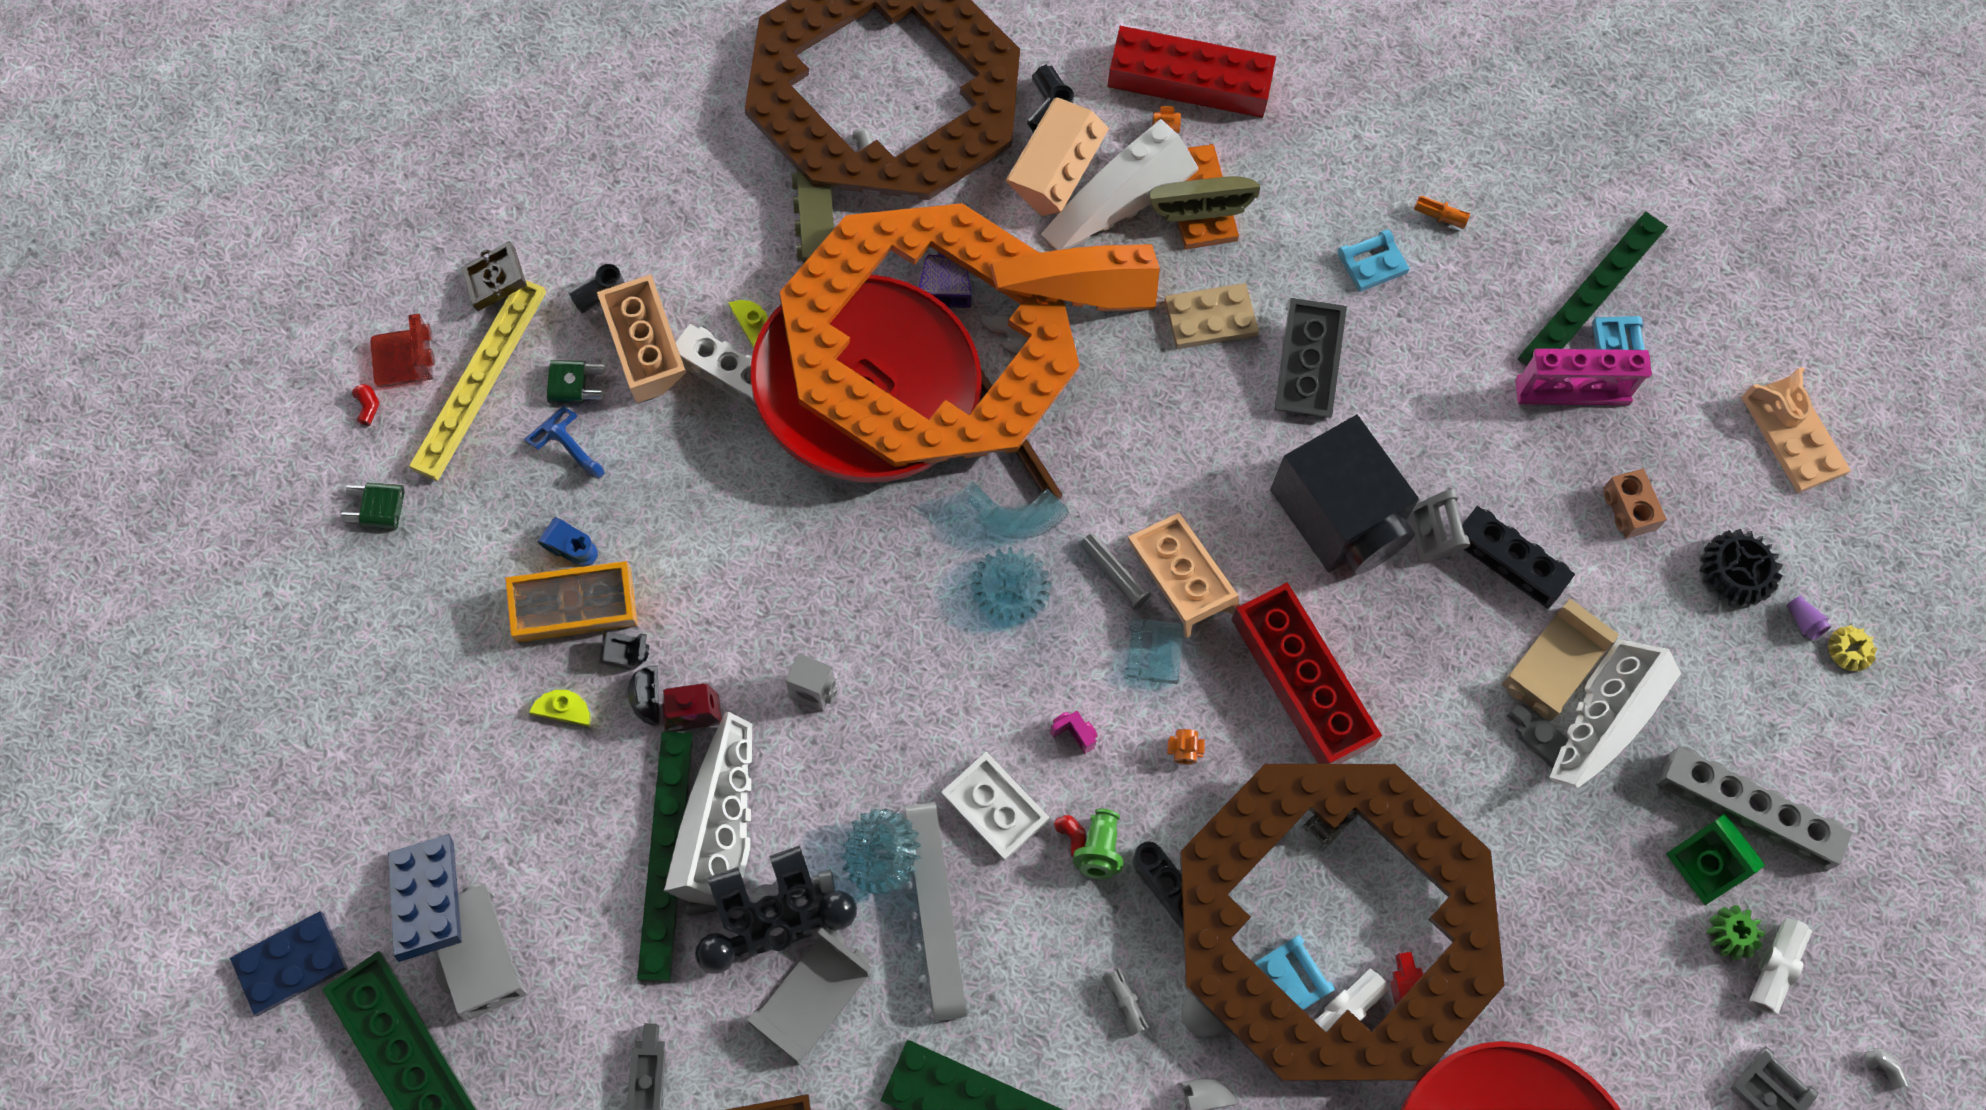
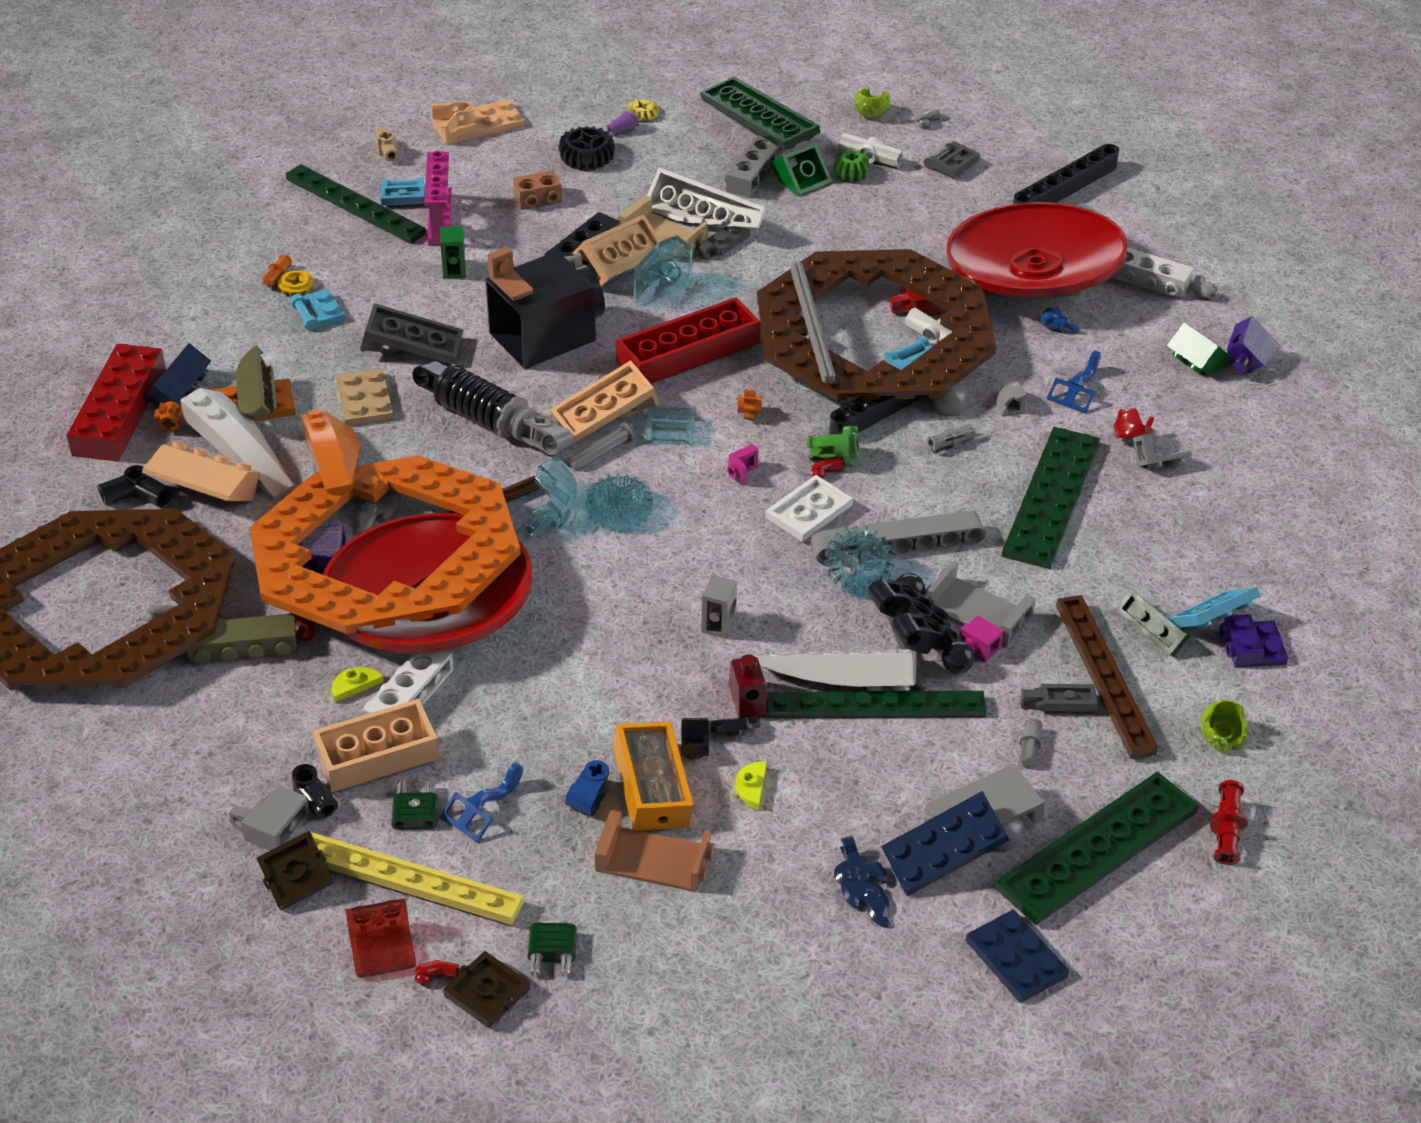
camera: 90 degrees left, 25 degrees down
(333, 446) = (486, 989): none -> dark brown plate
(417, 802) = (854, 877): none -> dark blue piece
(476, 604) = (652, 856): none -> nougat panel
(563, 256) = (274, 820): none -> light grey hinge
(583, 1024) = (1030, 742): none -> light grey axle
(750, 986) = (982, 637): none -> dark pink brick
(1173, 442) = (491, 406): none -> piece
(1226, 125) = (179, 377): none -> dark blue brick
(1316, 825) = (812, 322): none -> light grey axle
(1343, 436) = (503, 274): none -> nougat bracket
(1433, 231) = (289, 283): none -> yellow gear
(1449, 649) = (663, 270): none -> clear light blue slope
(1474, 397) = (453, 252): none -> green brick
(1494, 602) = (619, 248): none -> light nougat plate
(1720, 321) = (386, 144): none -> tan axle
(1833, 801) = (760, 113): none -> dark green plate
(1905, 980) = (870, 105): none -> lime hair

